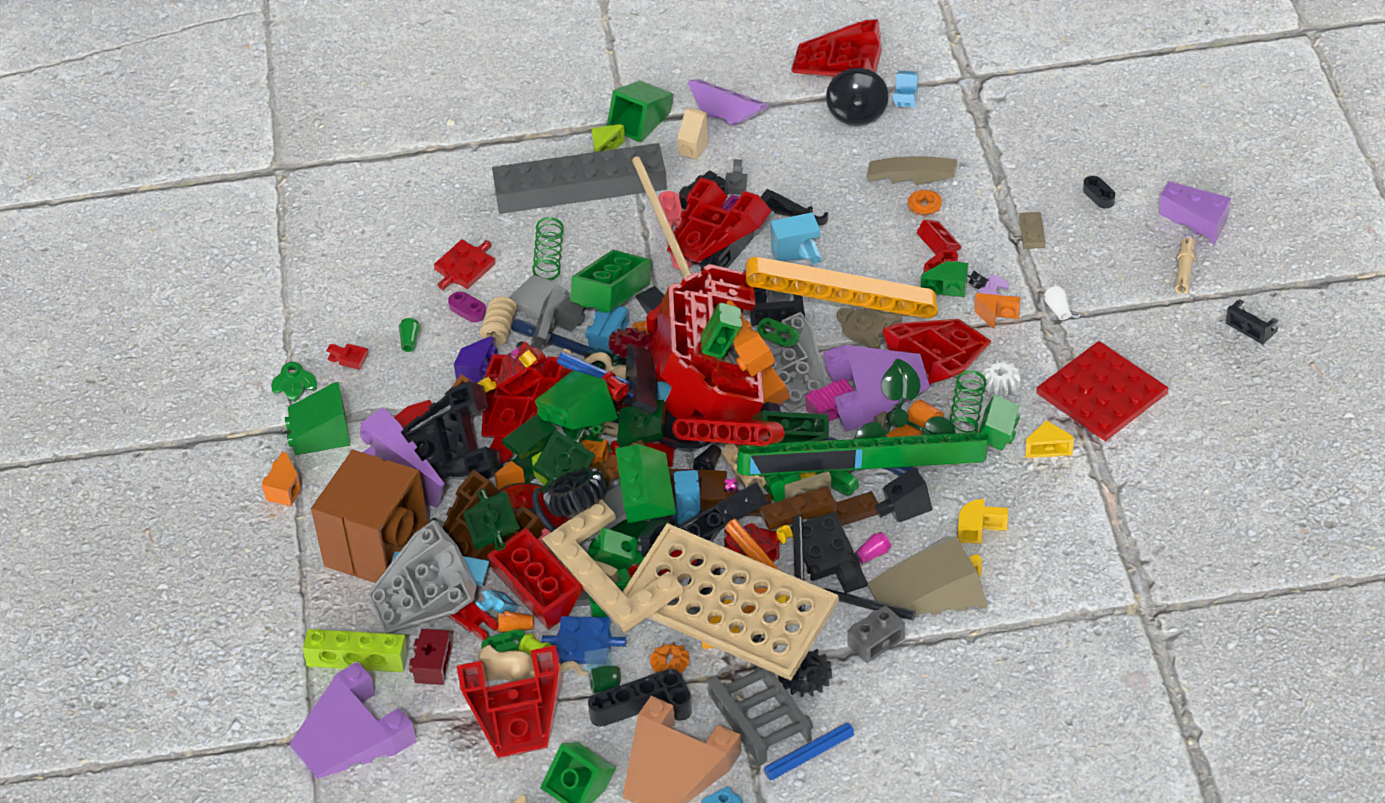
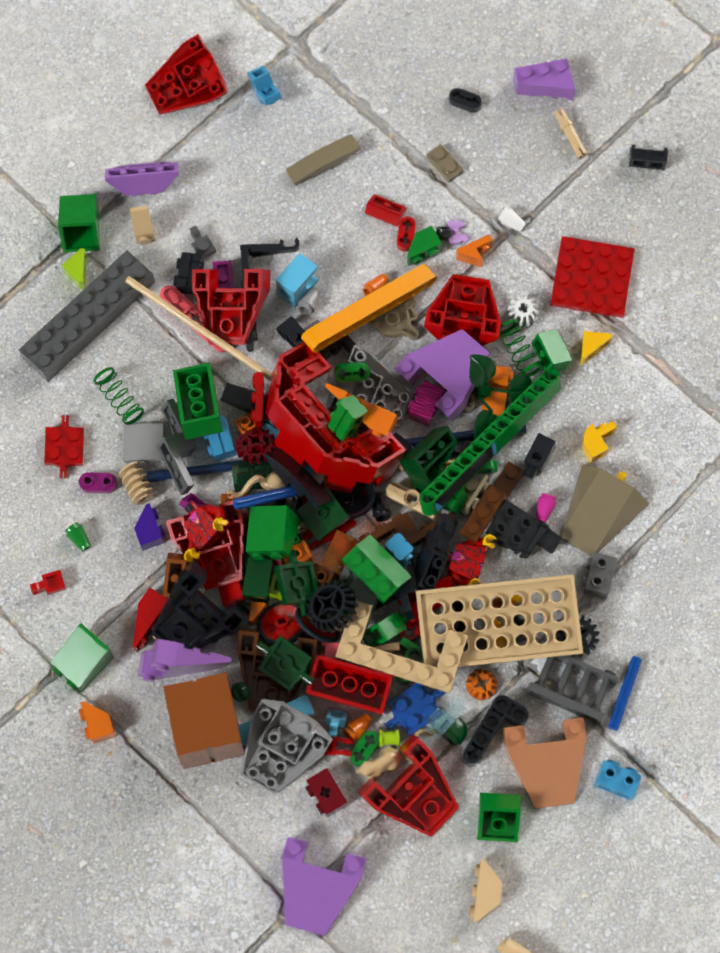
camera: 40 degrees left, 25 degrees up
(293, 383) = (29, 634): green plate -> none
(344, 648) = (271, 825): lime brick -> none
(615, 386) = (291, 501): red bush -> none
(732, 485) = (420, 521): dark pink axle -> none
(737, 430) = (397, 487): red beam -> none
(747, 543) = (484, 569): orange axle -> none
(798, 551) = (510, 552): black piece -> none
(855, 86) = (248, 113): black dish -> none
(873, 605) = (576, 554): black bar -> none
(917, 199) = (354, 176): orange gear -> none

